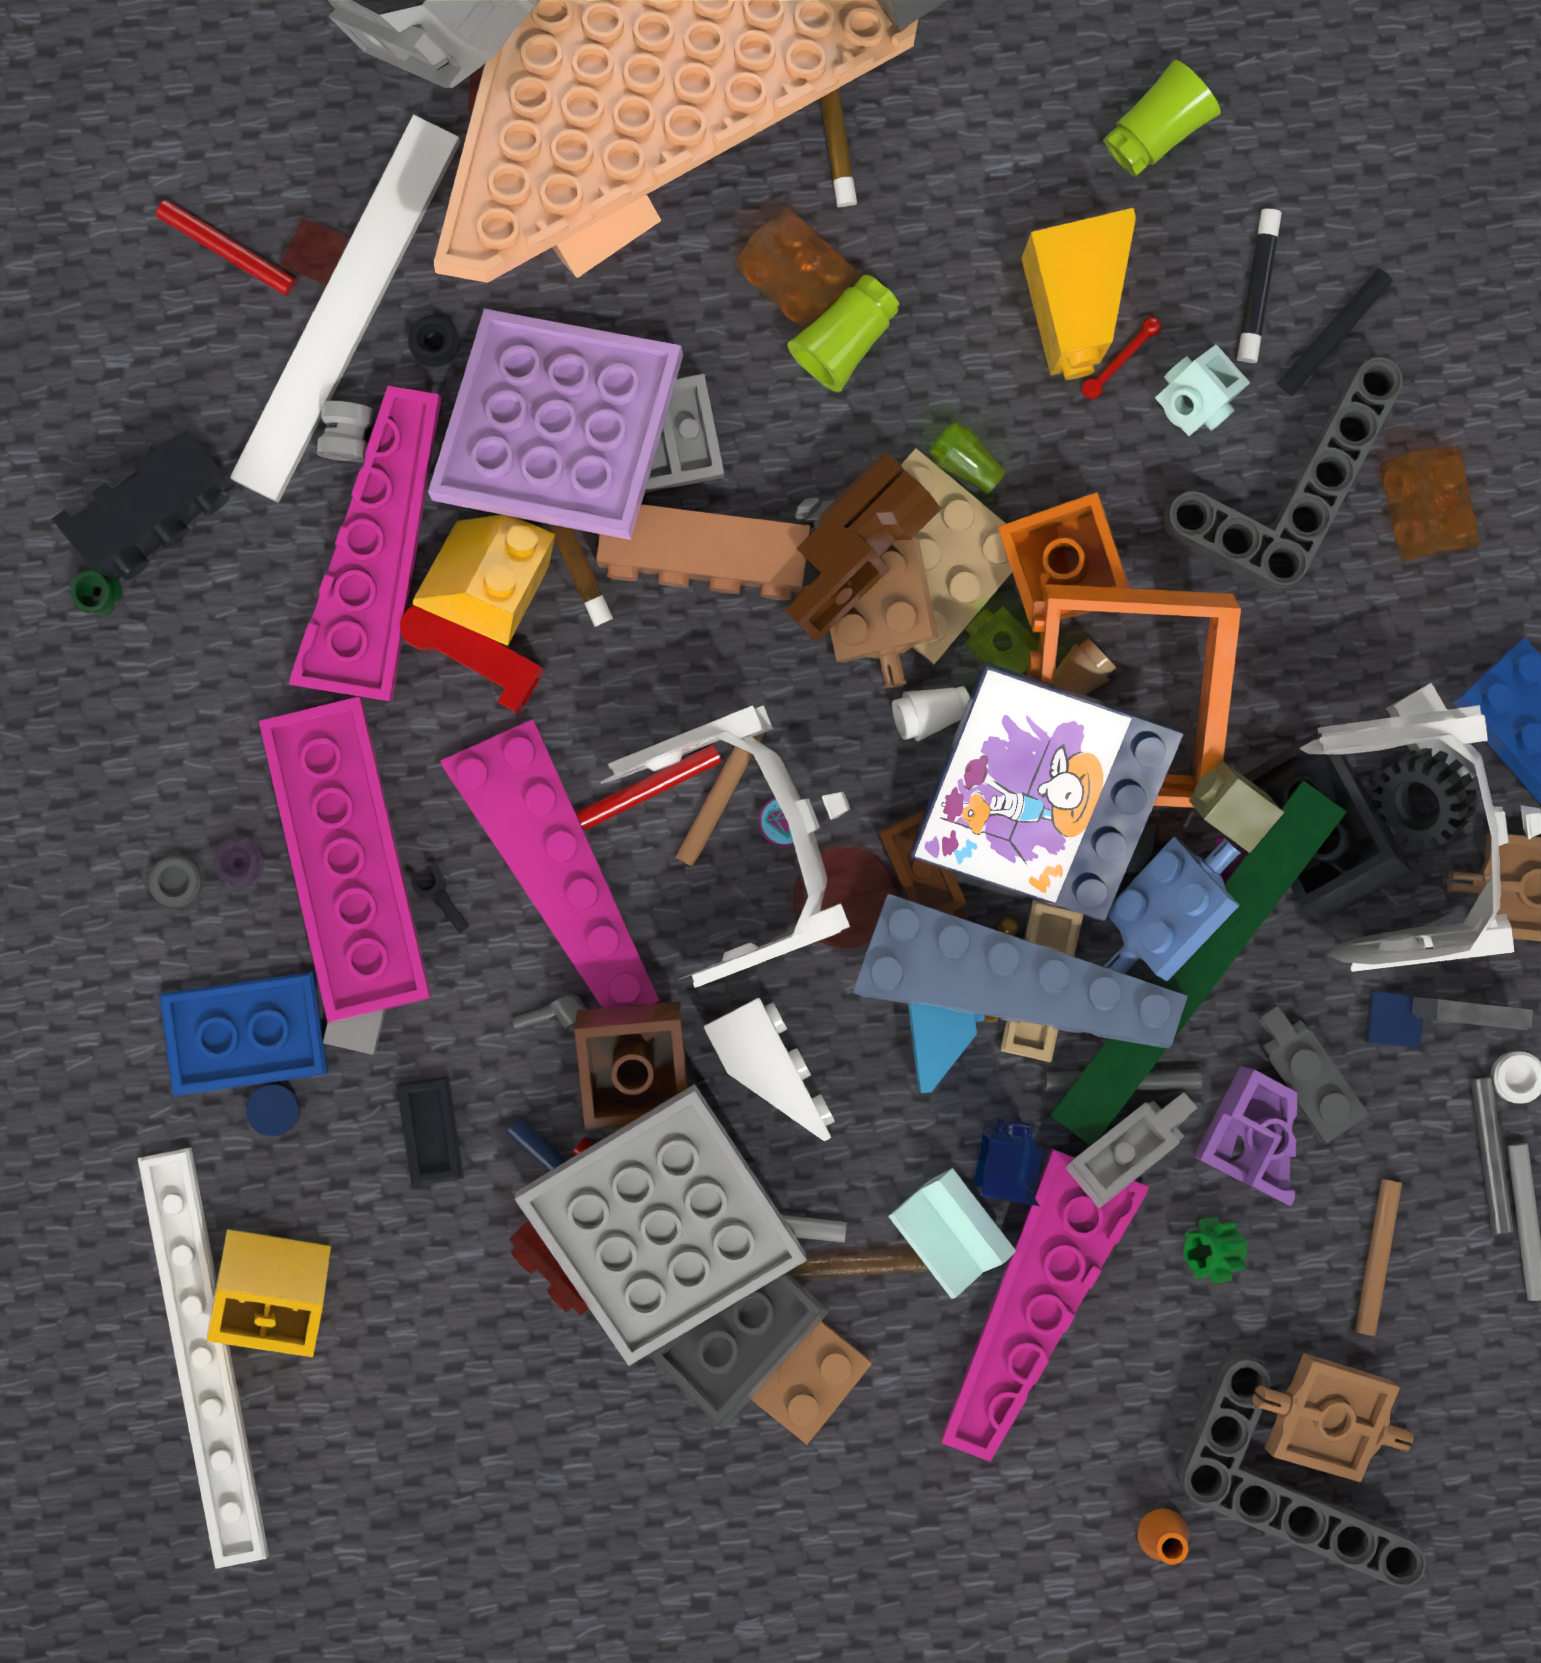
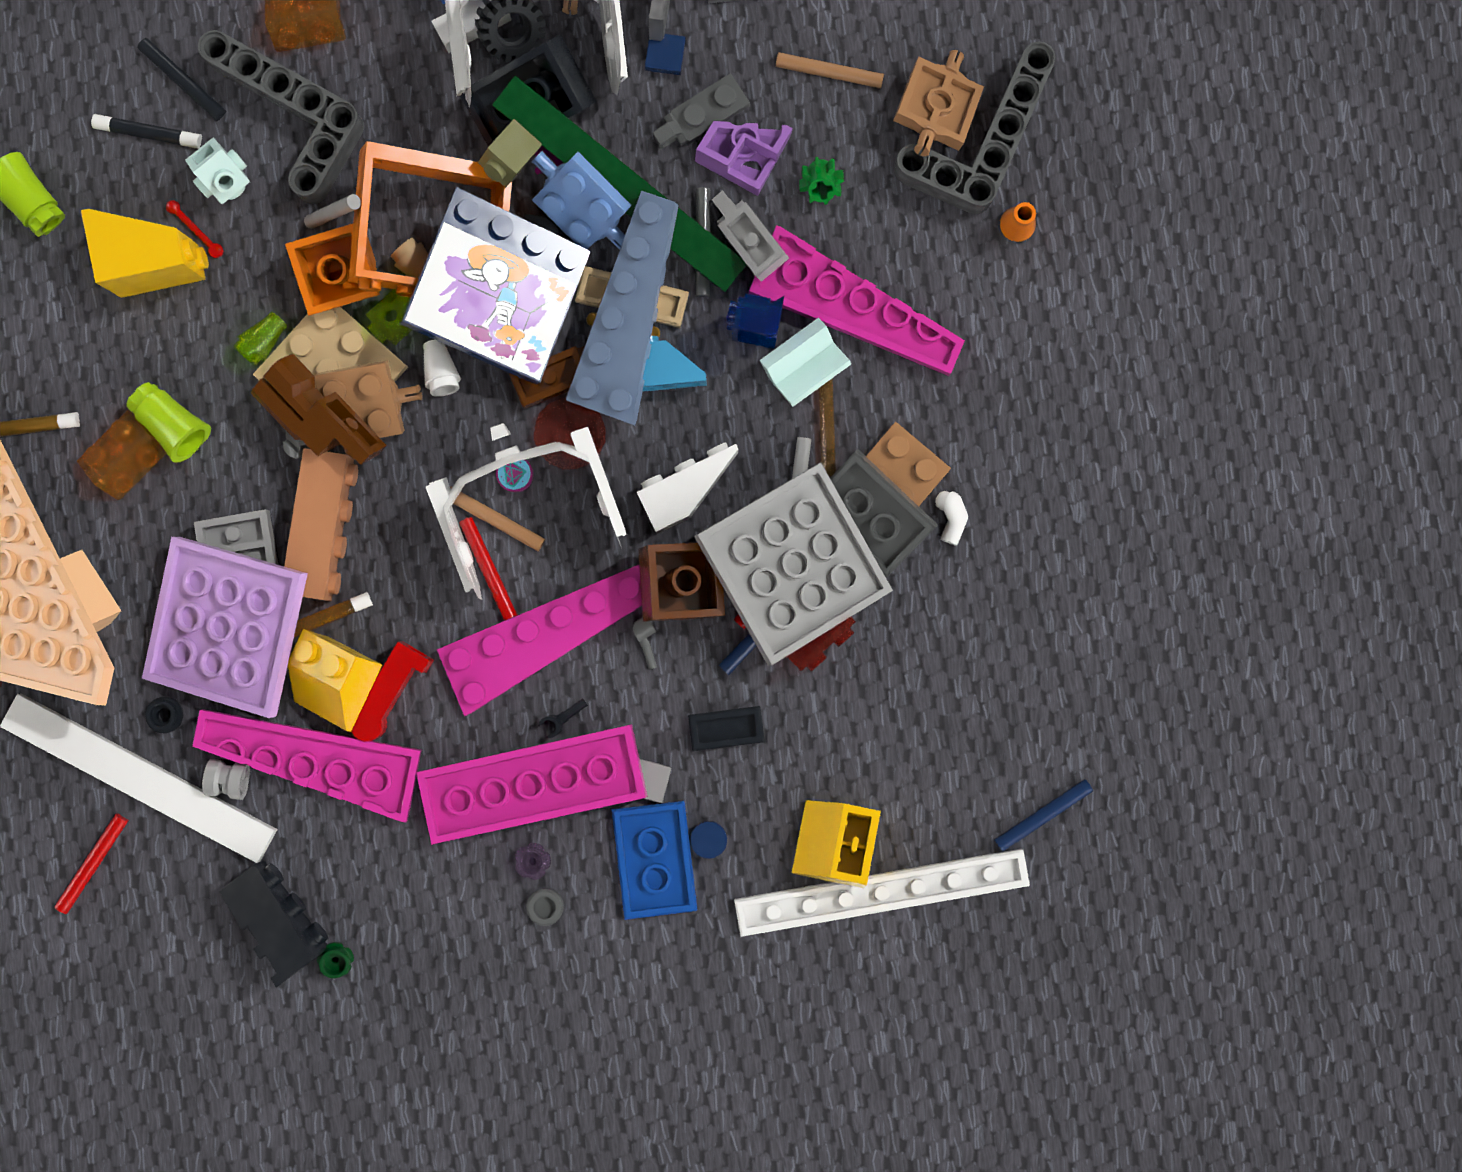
camera: 85 degrees left, 0 degrees up
(314, 252) = (97, 799): clear red tile -> none
(315, 1586) = (1044, 815): none -> dark blue bar
(741, 1452) = (956, 514): none -> white arm
(1145, 557) = (332, 211): none -> light grey bar

